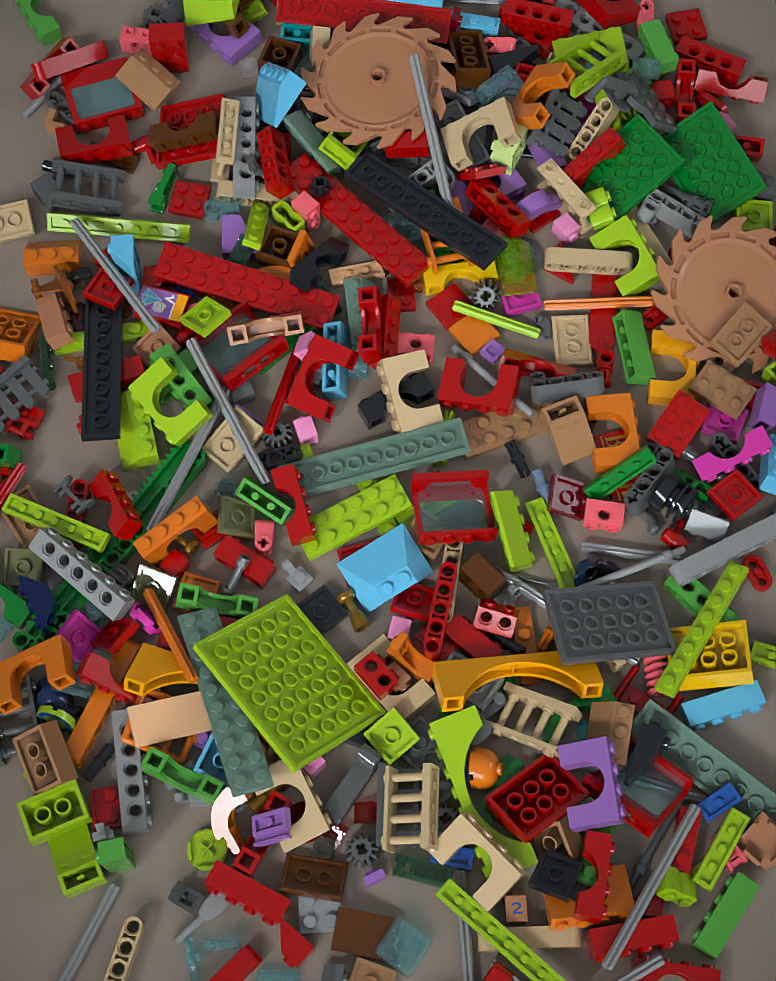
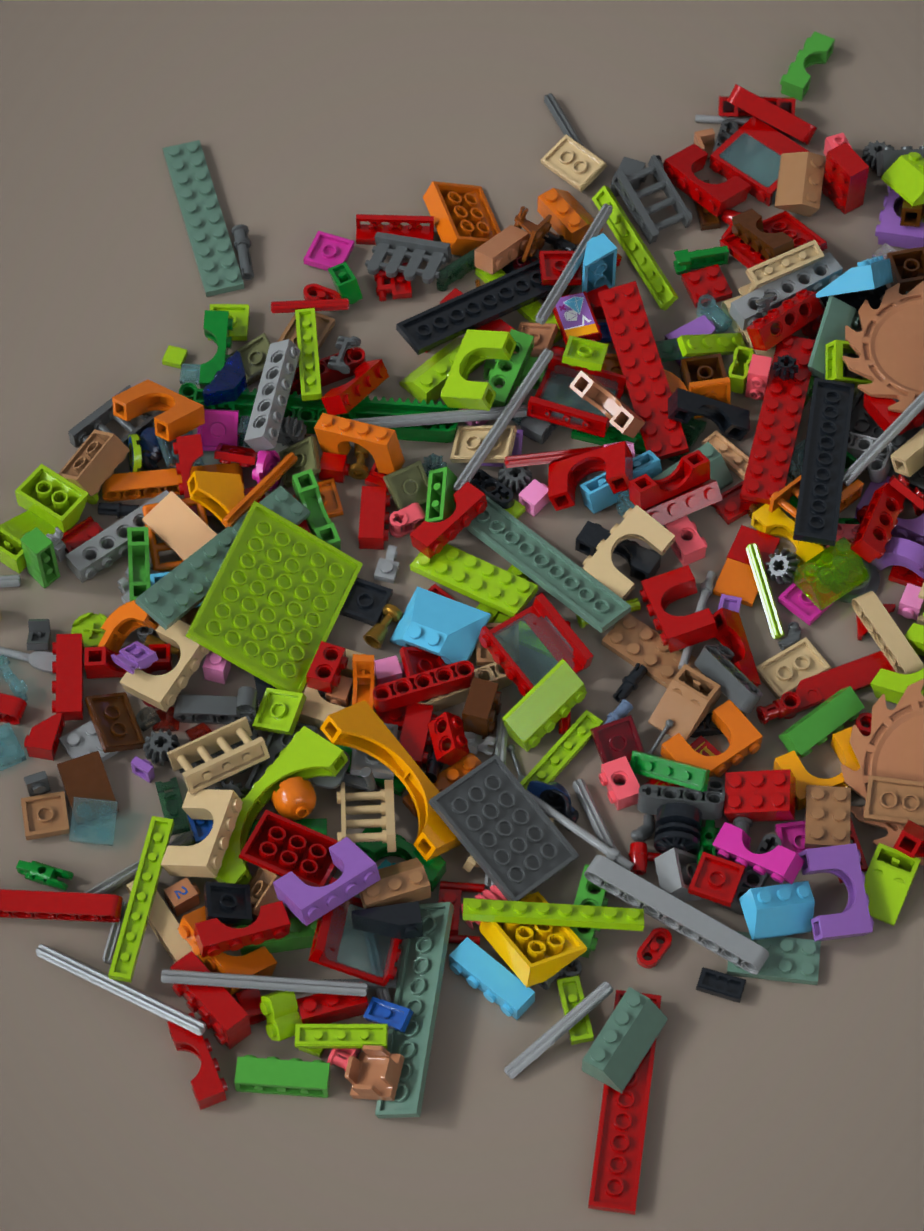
camera: 60 degrees right, 10 degrees down
(242, 563) = (365, 509): dark grey bar -> none
(578, 450) = (669, 723): none -> dark grey hinge
(596, 303) = (843, 662): orange axle -> none

